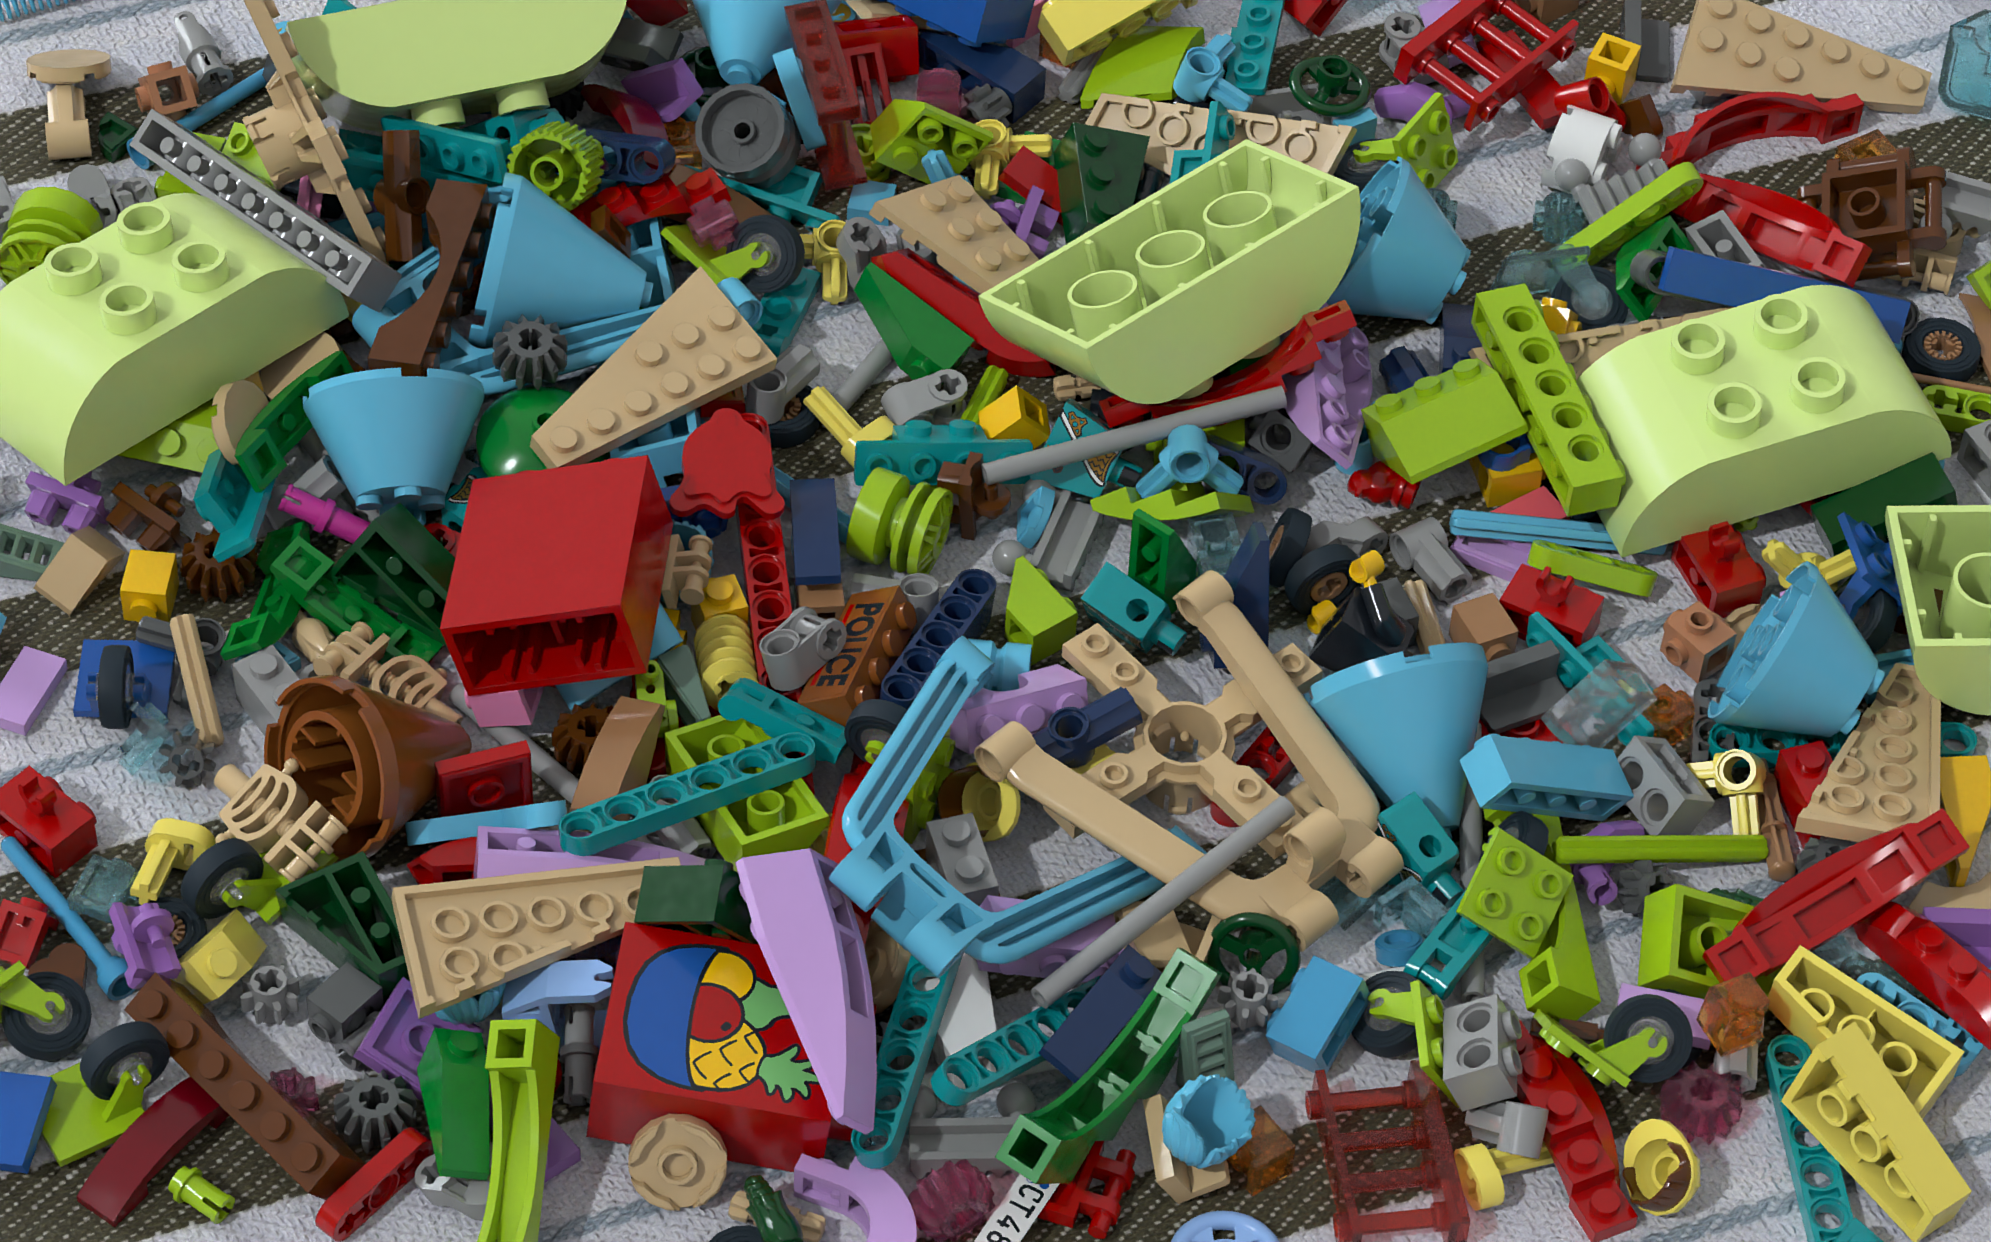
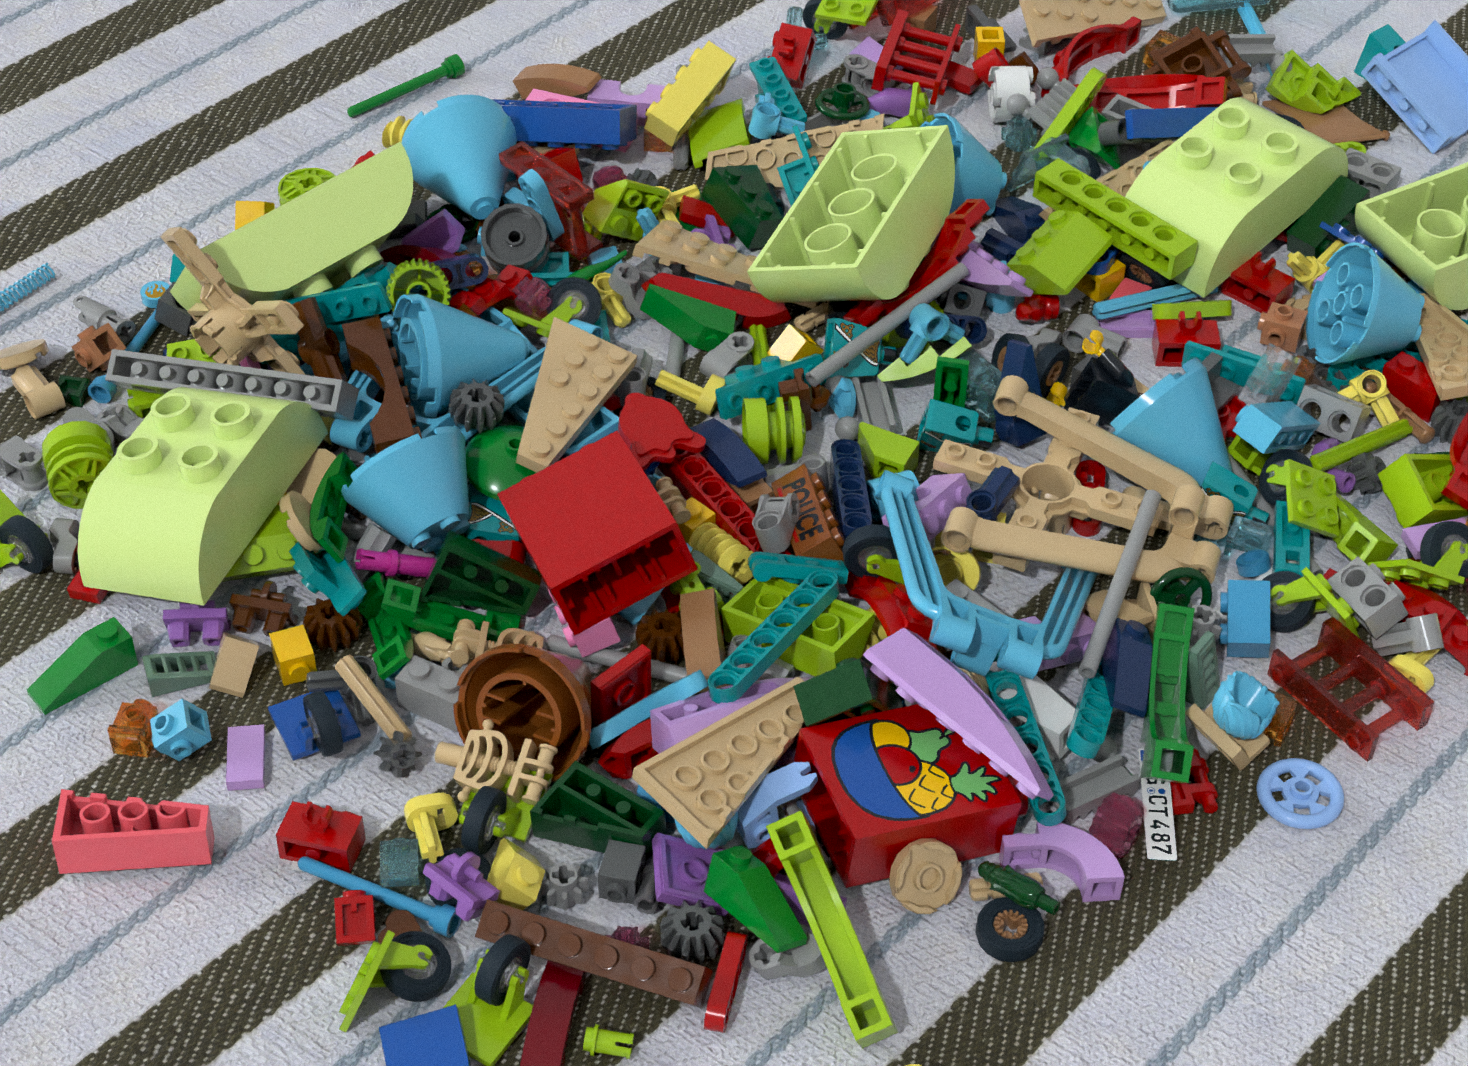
camera: 25 degrees left, 5 degrees down
(140, 747) = (361, 758): clear light blue bracket -> none
(819, 213) = (588, 272): none -> green animal
(996, 65) = (626, 158): dark blue slope -> none
(1486, 624) = (1156, 363): medium nougat brick -> none

